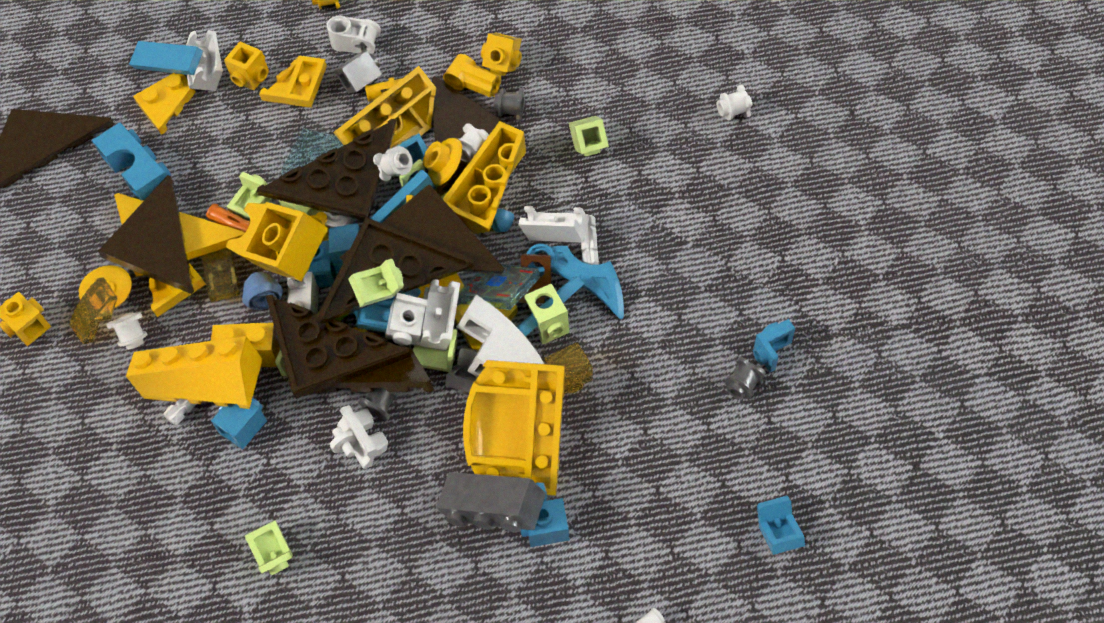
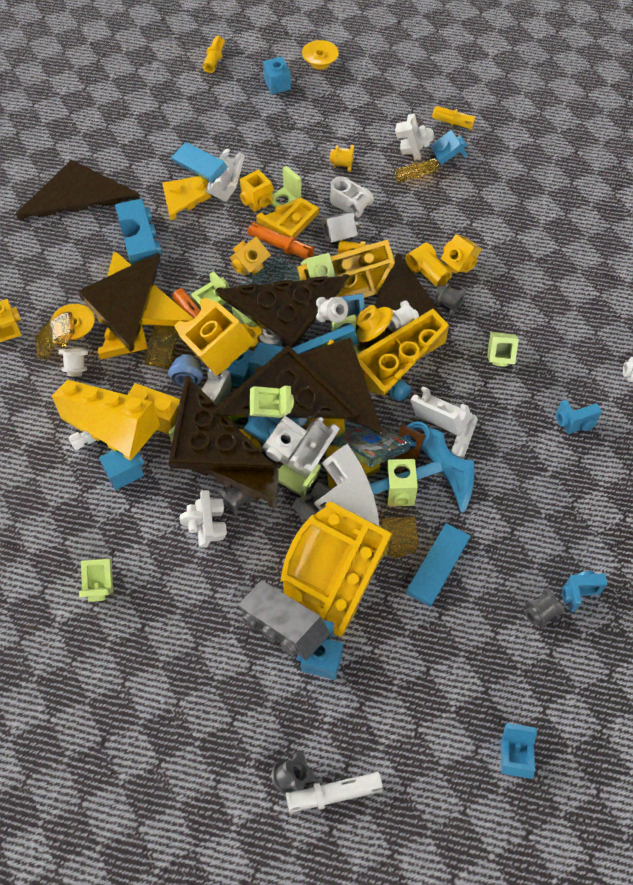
camera: 20 degrees right, 0 degrees up
(273, 141) = (249, 257): none -> yellow brick
(283, 49) = (291, 187): none -> yellowish green bracket
(299, 111) = (288, 244): none -> orange pin
(358, 121) = (319, 266): none -> yellowish green bracket
(621, 381) = (438, 565): none -> dark azure tile
(696, 178) = (577, 420): none -> dark azure bracket

